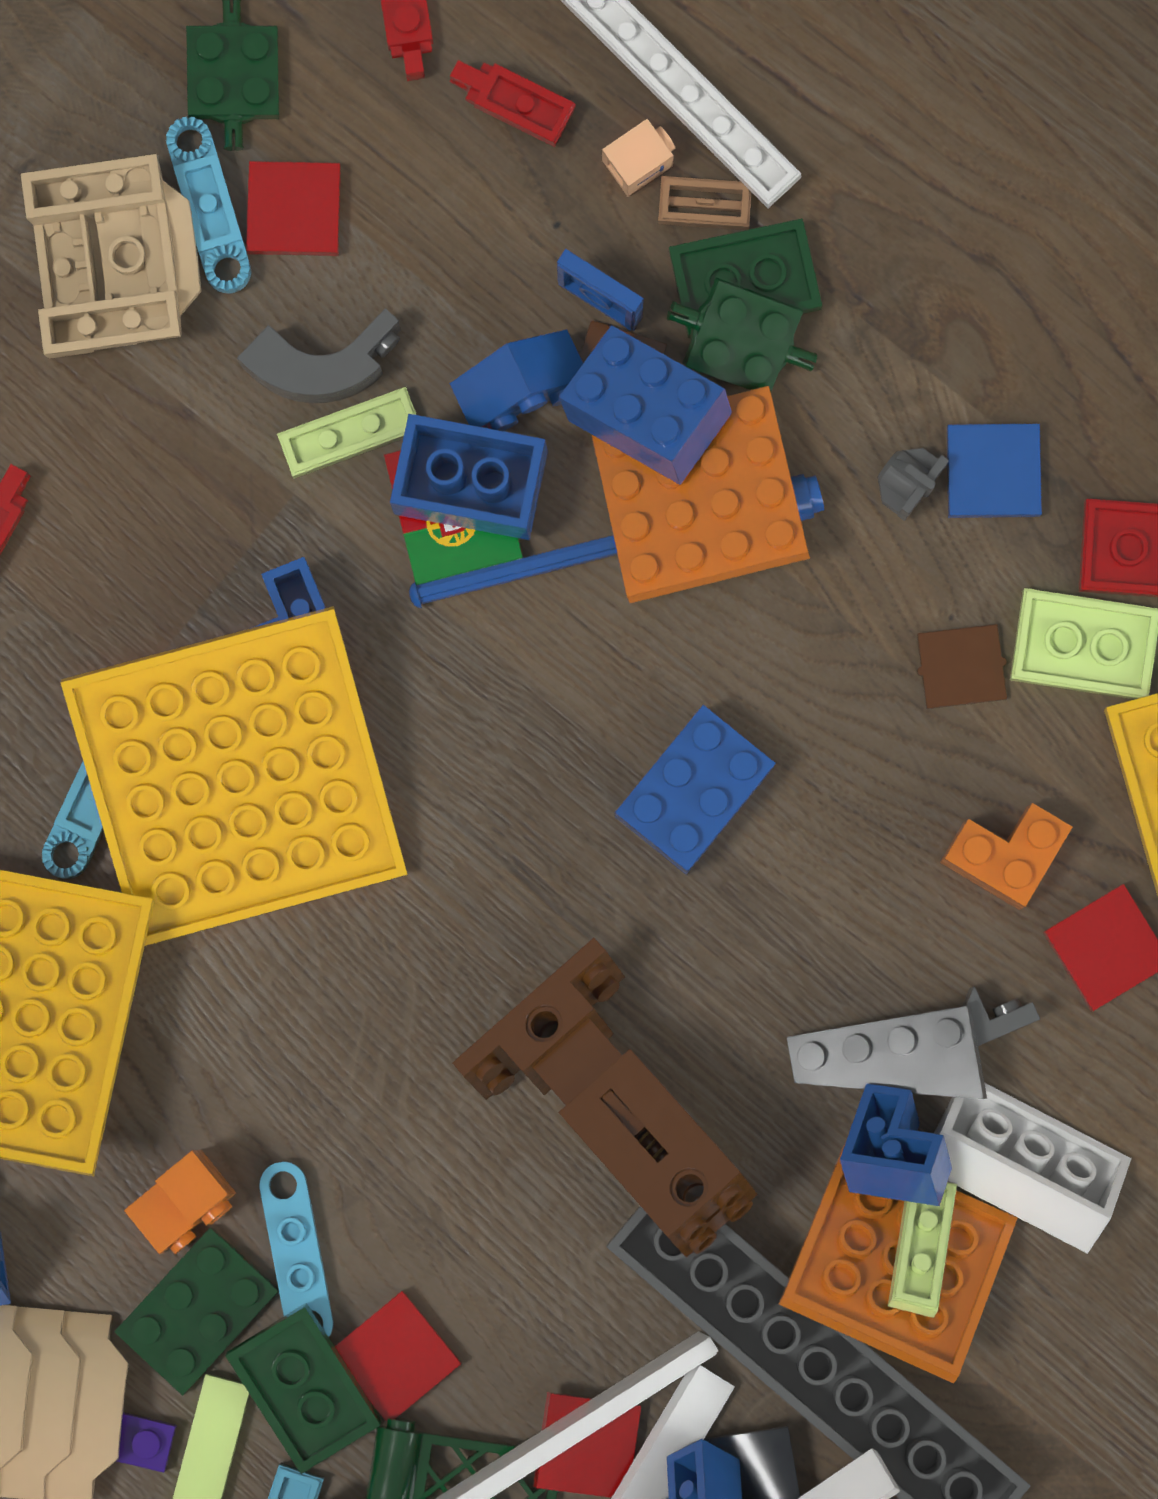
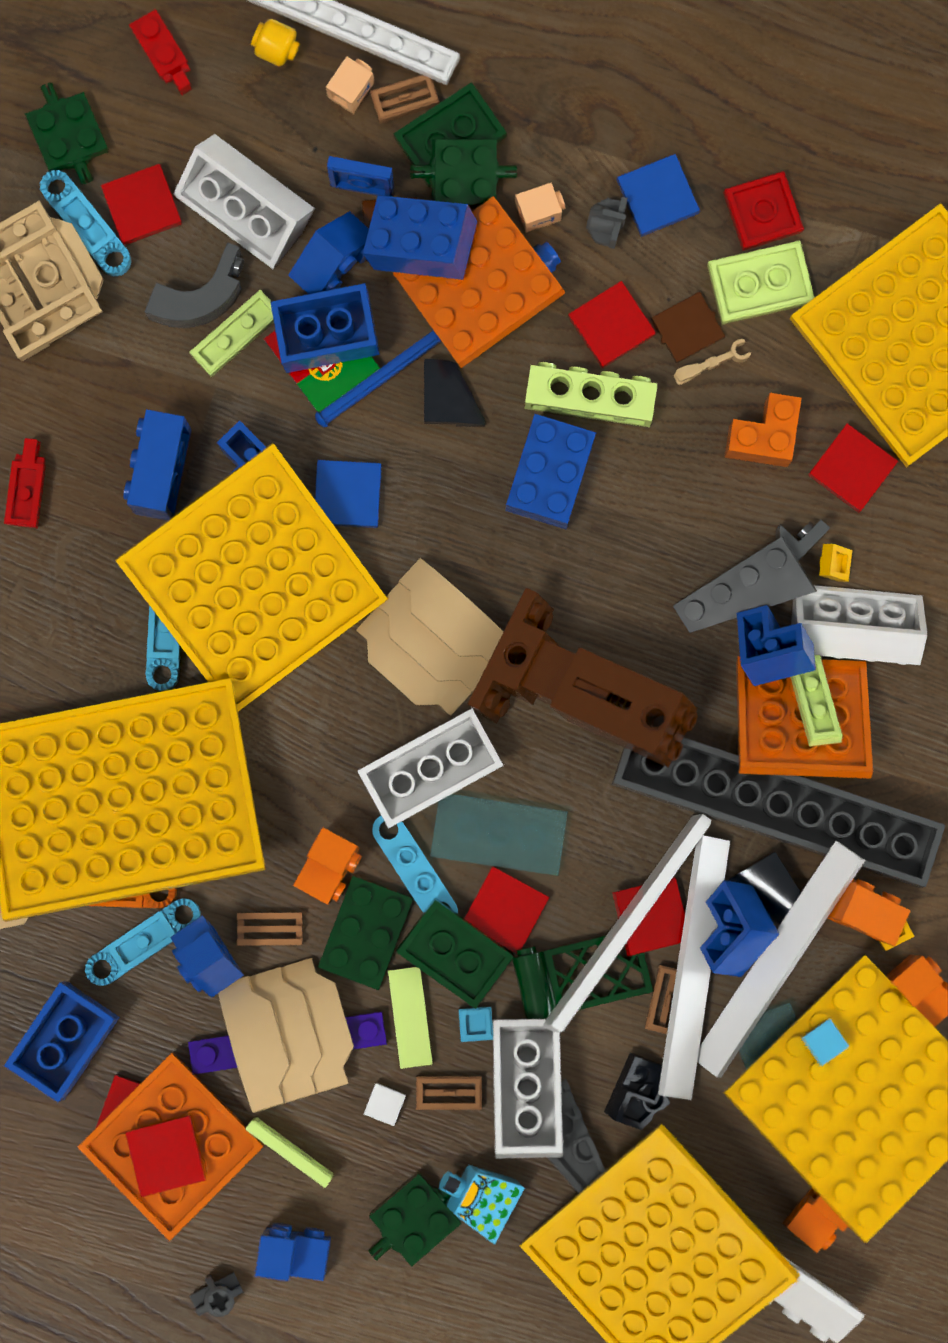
camera: 25 degrees left, 0 degrees up
(34, 1239) = (241, 929): none -> medium nougat tile
(171, 572) = (157, 465): none -> blue brick
(369, 1127) = (430, 768): none -> white slope
(413, 709) = (349, 492): none -> blue tile
(428, 1250) = (499, 834): none -> clear light blue tile
(431, 257) = (243, 200): none -> white slope
(440, 952) = (430, 639): none -> tan slope
(514, 100) = (256, 79): red hinge -> none
(560, 60) = (275, 42): none -> yellow head
(599, 632) = (448, 396): none -> black slope
(723, 684) = (573, 403): none -> yellowish green brick
(826, 424) = (539, 207): none -> light nougat brick
(859, 622) = (611, 324): none -> red tile
(938, 728) = (689, 372): none -> tan piece
(1030, 1067) = (835, 562): none -> yellow plate

